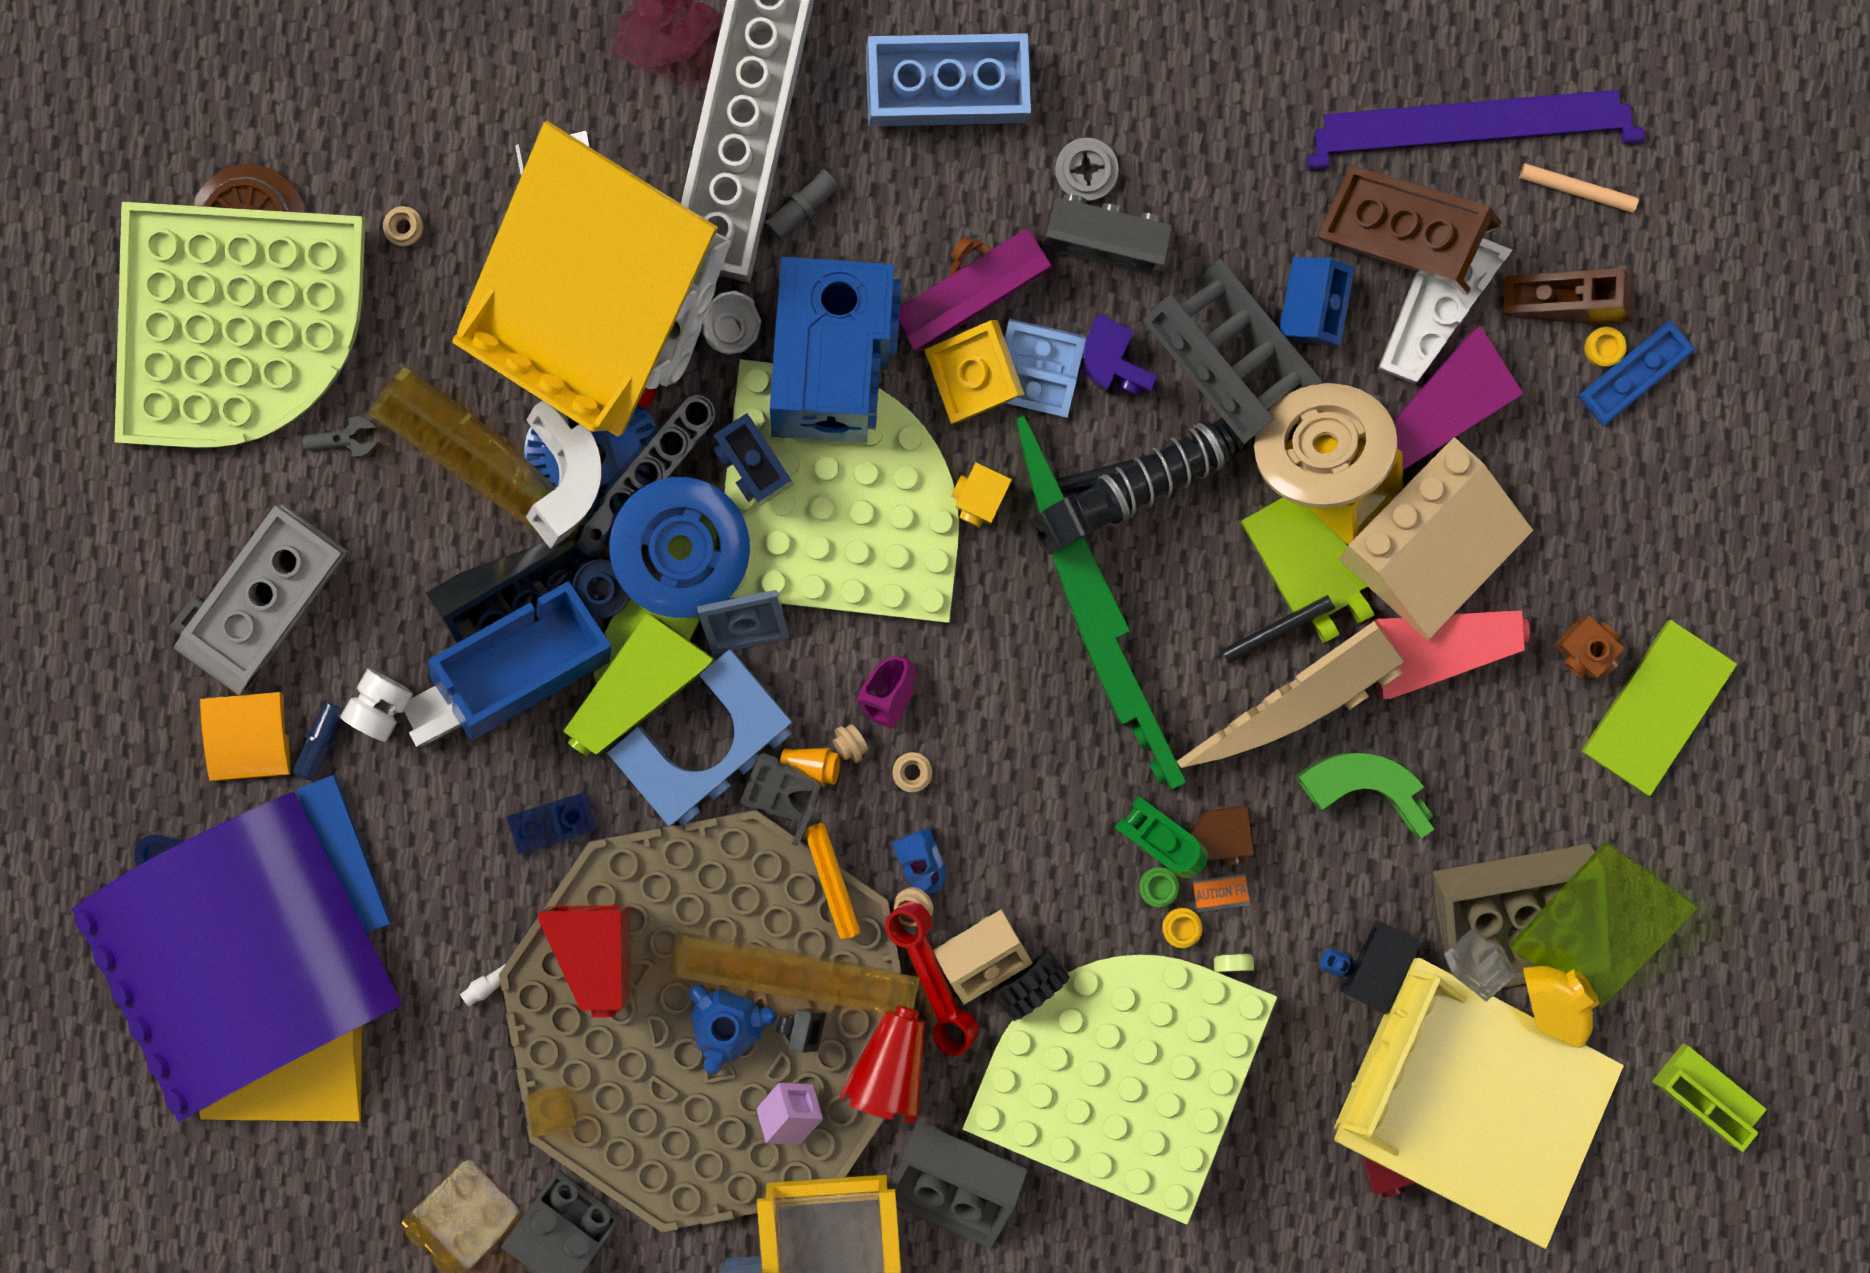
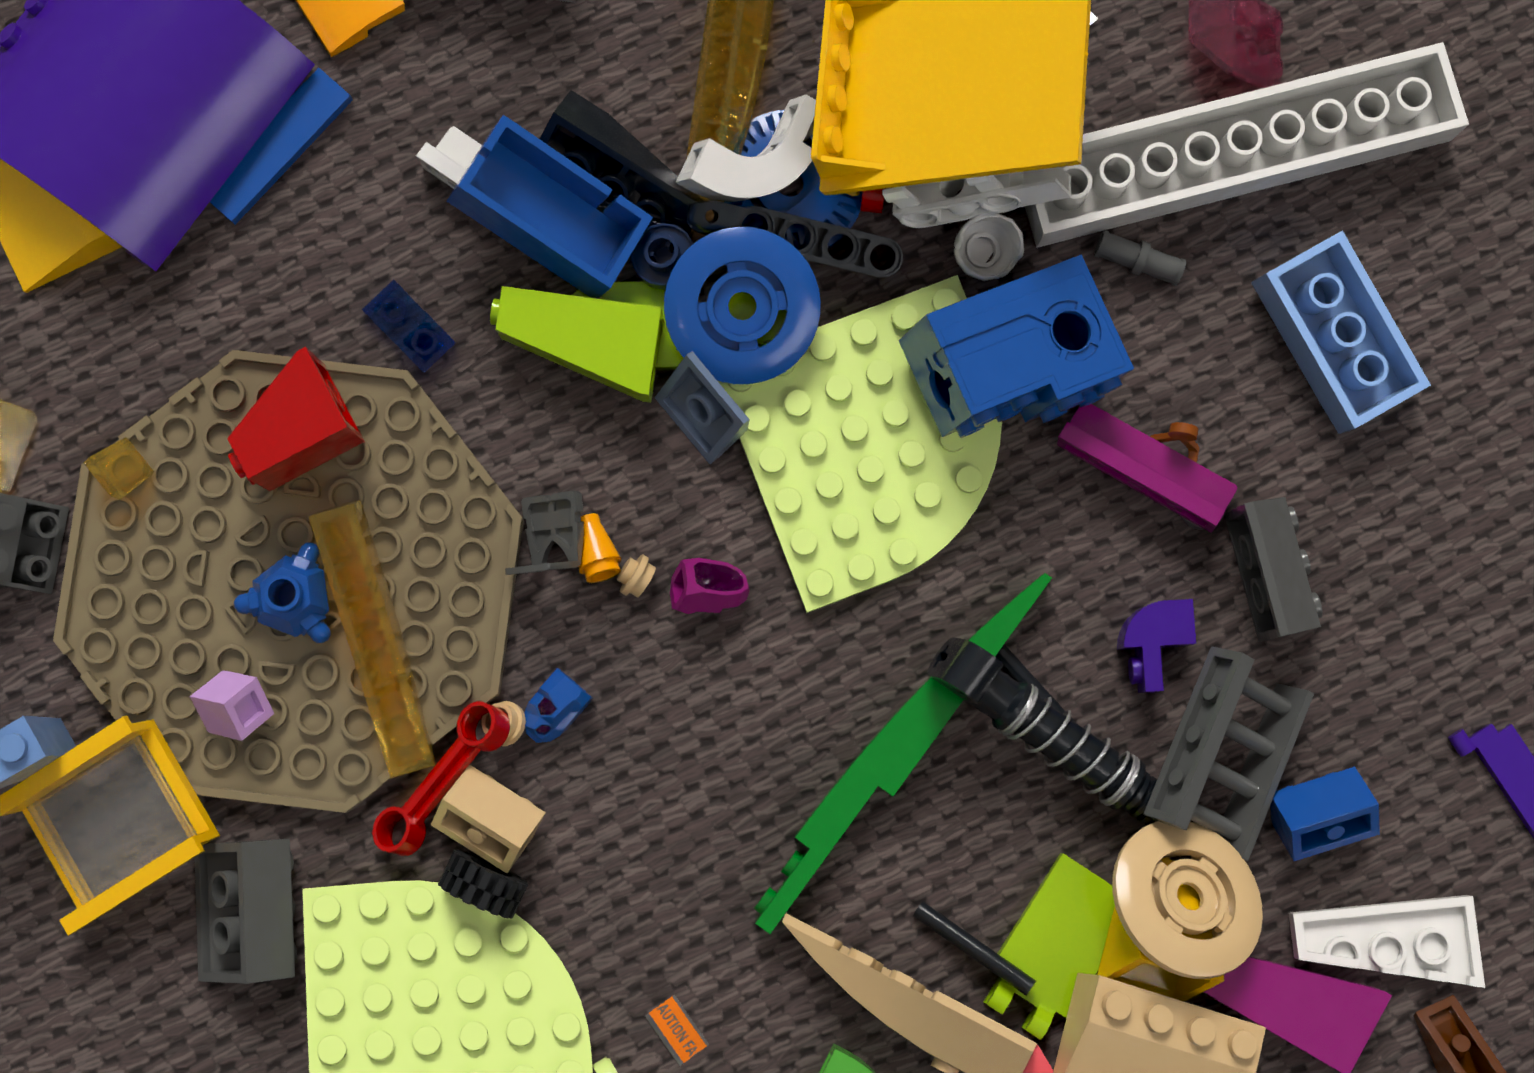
camera: 60 degrees right, 5 degrees down
(318, 742) = (376, 66): dark blue axle -> none
(374, 719) = (423, 95): white wheel -> none
(482, 987) = (211, 341): white piece -> none
(676, 790) = (608, 473): medium blue arch -> none
(753, 459) = (866, 333): dark blue brick -> none
(803, 1028) = (324, 675): black tile -> none
(832, 881) = (488, 628): light orange axle -> none
(890, 1068) = (324, 782): red cone -> none
(899, 772) = (624, 653): tan plate -> none
(974, 371) = (1068, 507): yellow plate -> none
(980, 495) = (949, 577): yellow brick -> none
(1046, 365) = (1105, 570): light blue slope -> none
(1099, 155) = (1346, 521): light grey gear -> none
(1159, 887) = (650, 962): bright green plate -> none
(1164, 839) = (699, 942): green plate -> none
(1182, 927) = (620, 1008): yellow plate -> none
(1225, 834) = (730, 992): reddish brown slope -> none
(1407, 225) = (1454, 867): reddish brown plate -> none

